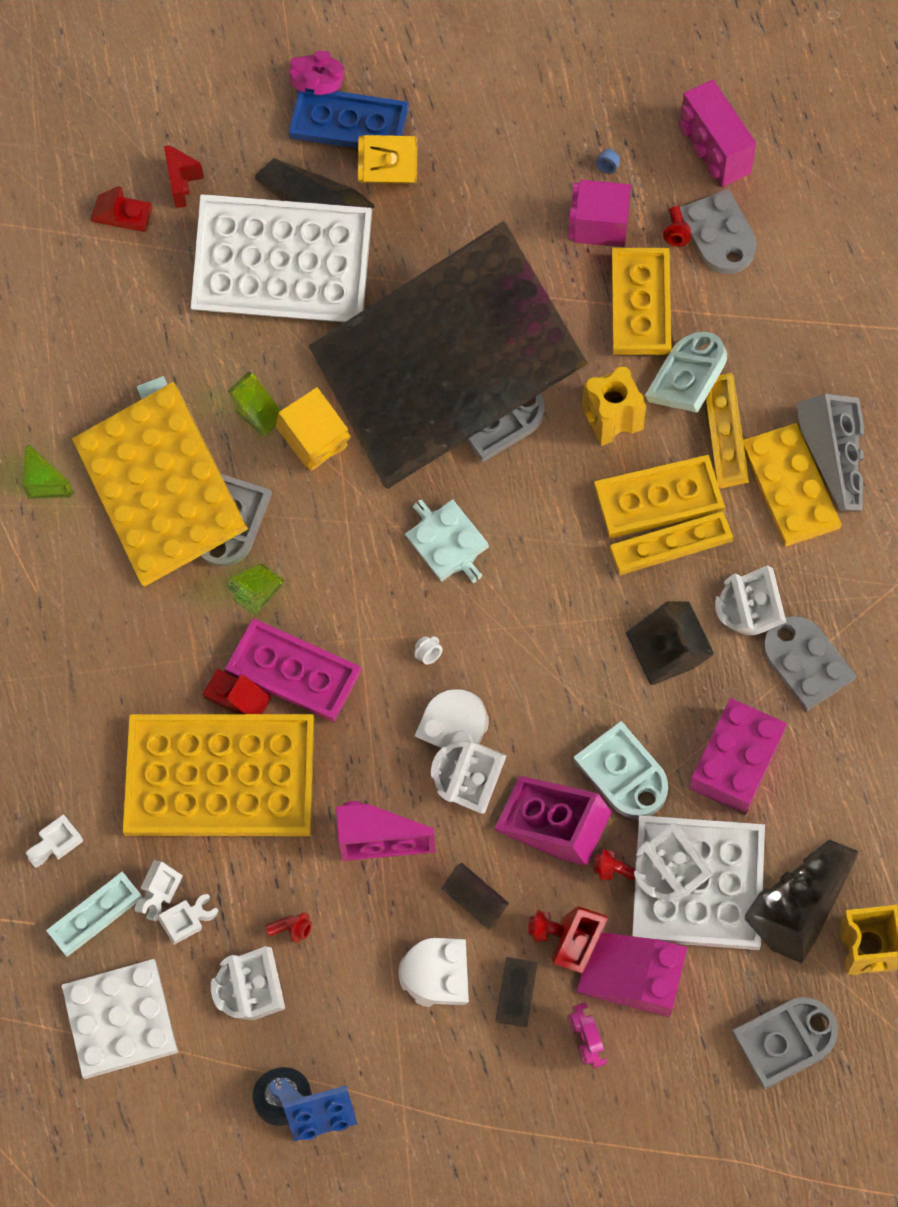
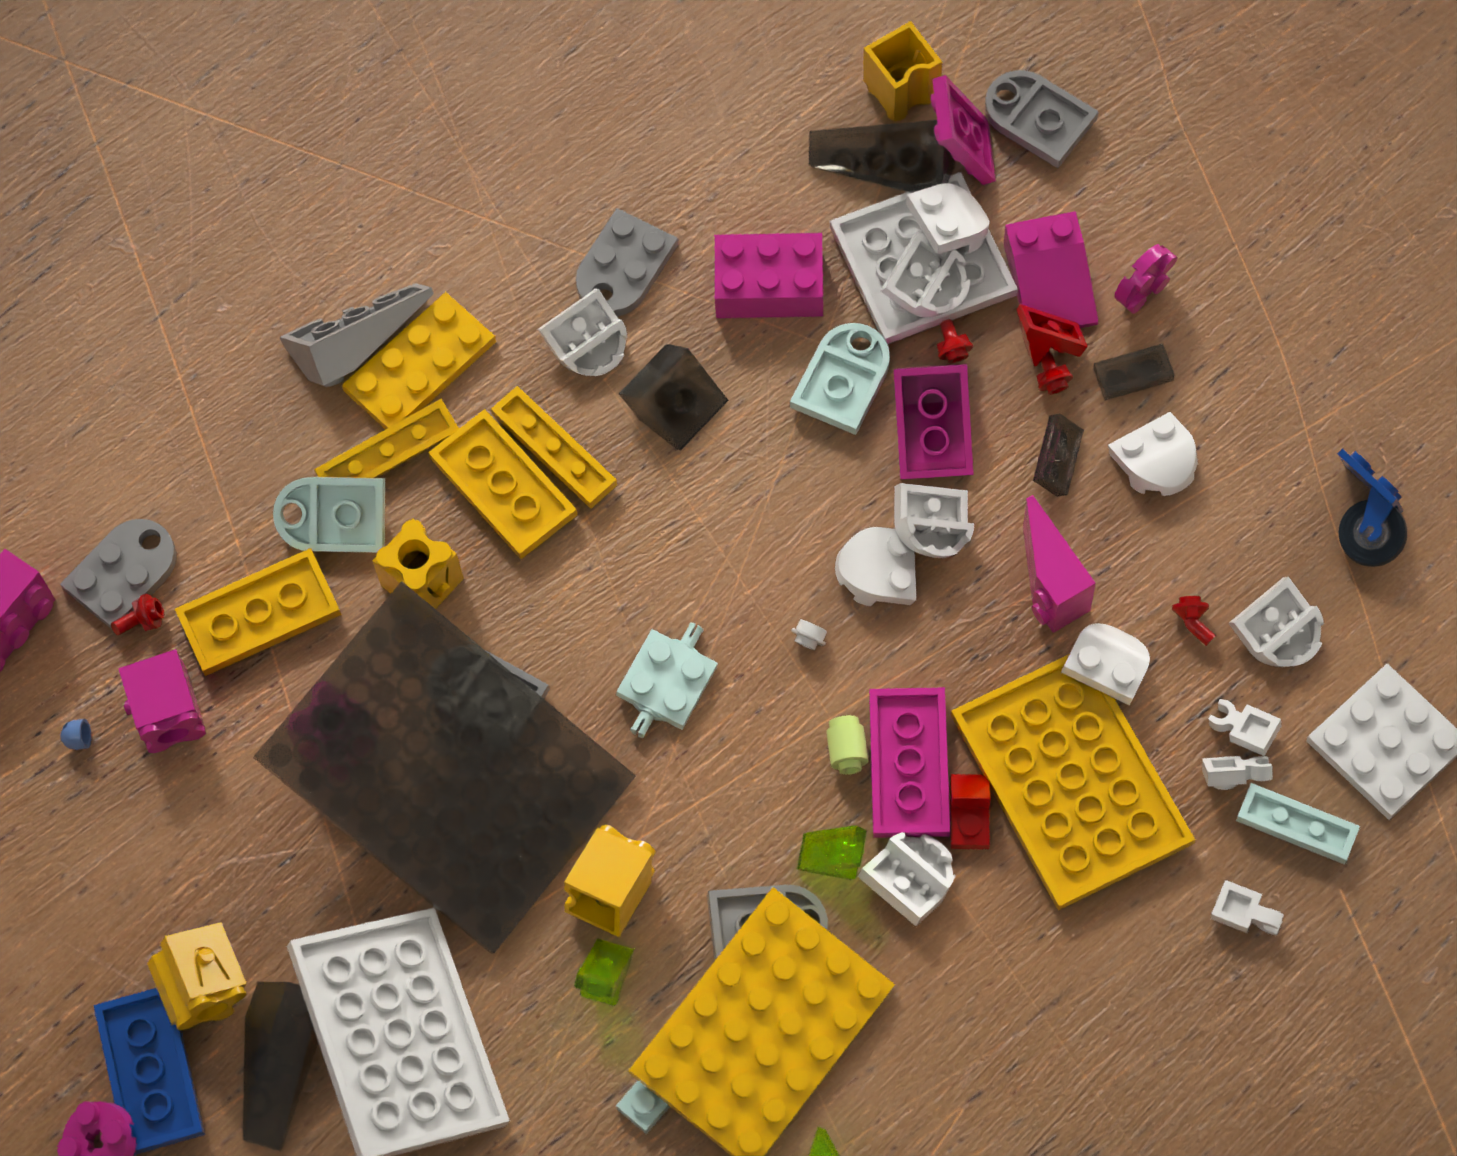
camera: 115 degrees left, 0 degrees up
(210, 630) = (911, 875): none -> white slope
(289, 843) = (1108, 661): none -> white slope
(328, 633) = (847, 744): none -> yellowish green brick
(712, 906) = (949, 217): none -> white slope
(787, 954) = (962, 130): none -> dark pink plate

